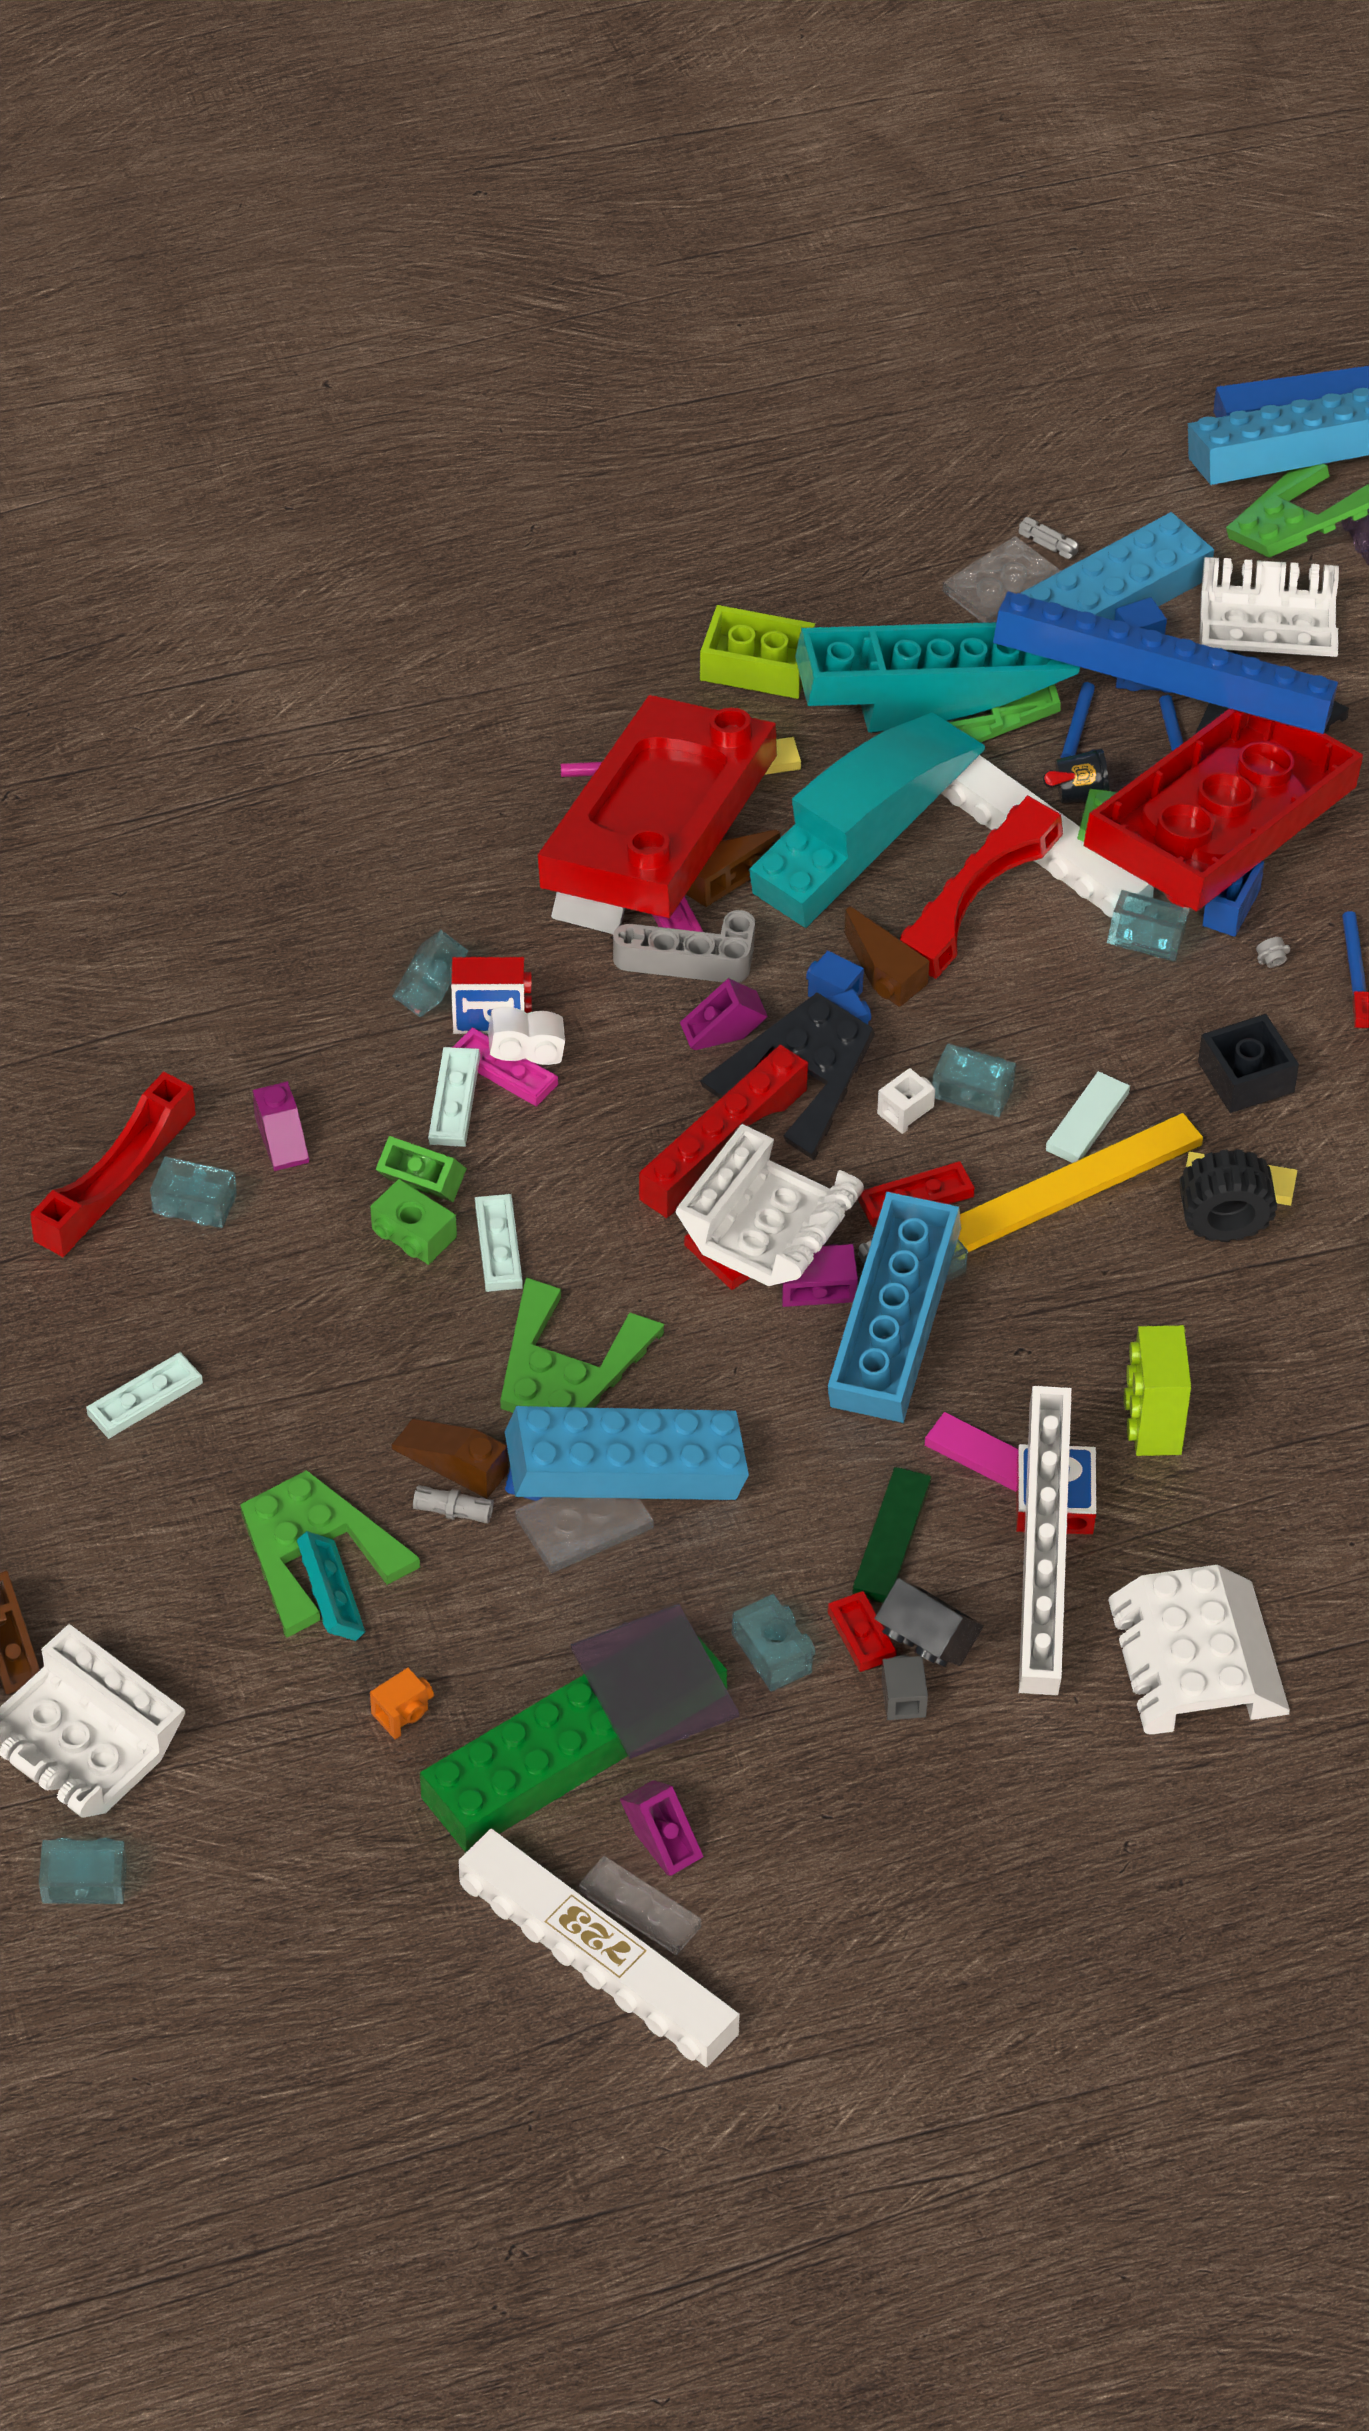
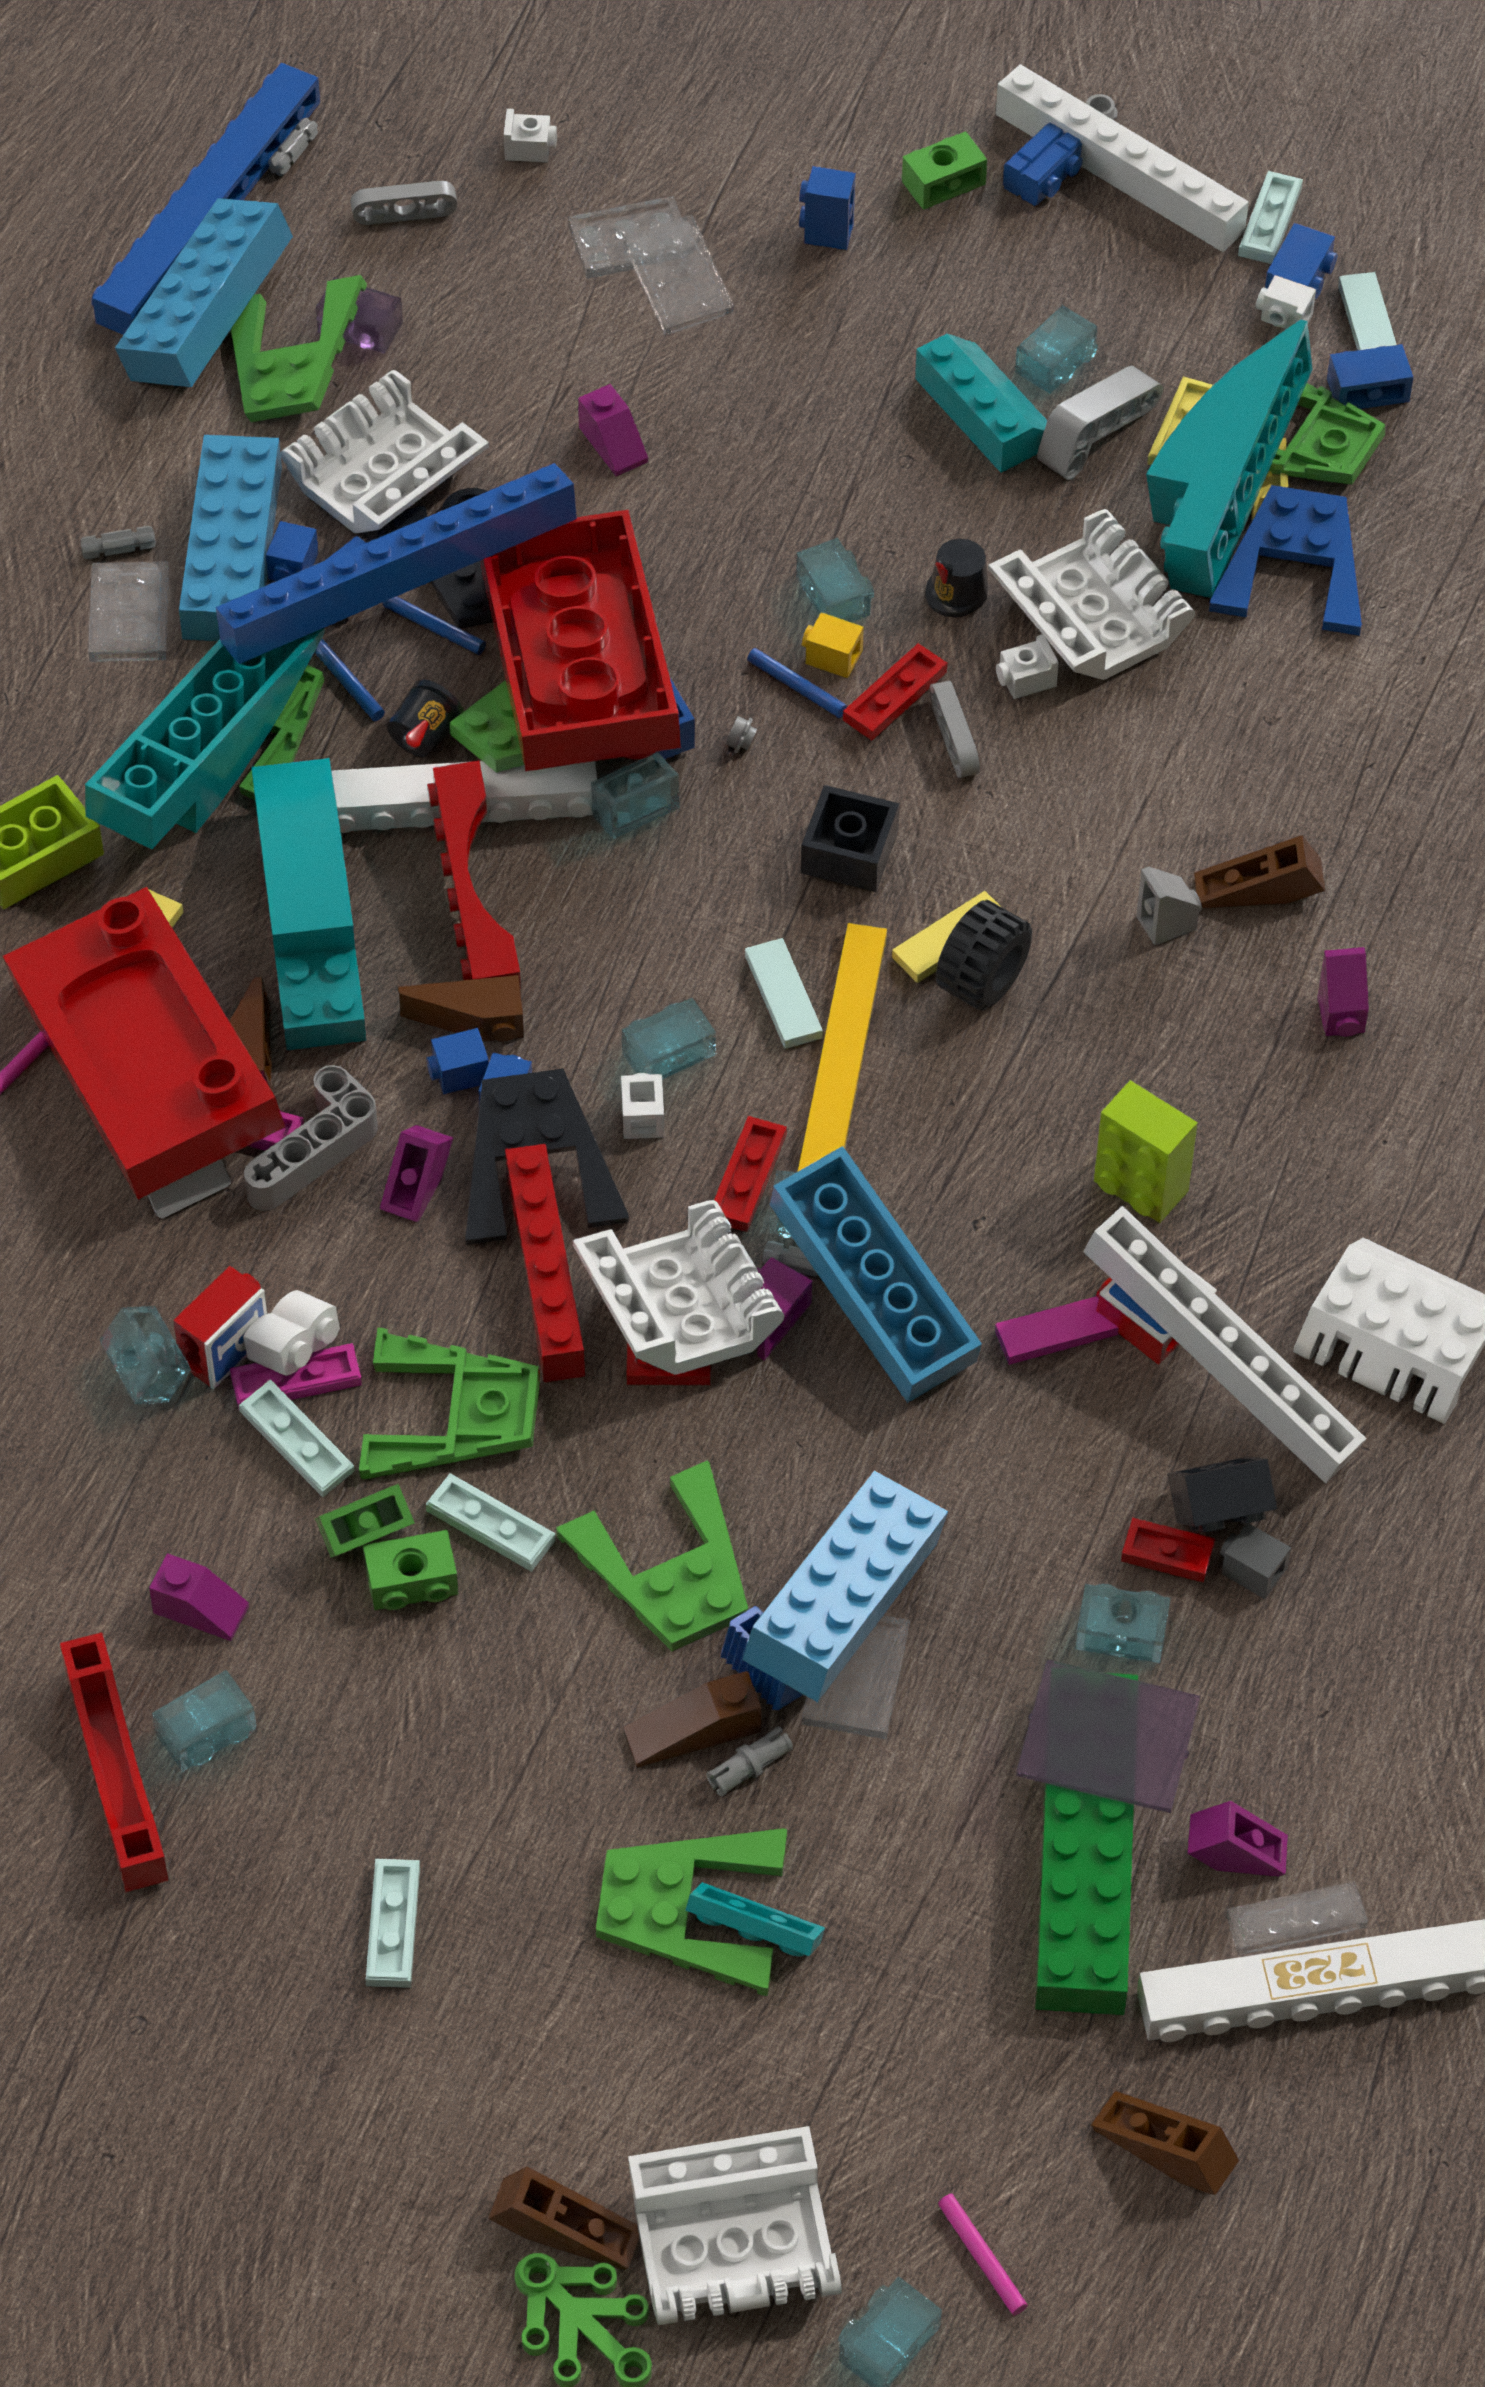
camera: 50 degrees left, 5 degrees up
(198, 1889) = (982, 2254): none -> dark pink bar
(381, 1939) = (1169, 2141): none -> reddish brown slope
(400, 1701) = (932, 1952): orange brick -> none
(574, 1183) = (489, 1407): none -> bright green wing
(892, 1534) = (1085, 1456): dark green tile -> none

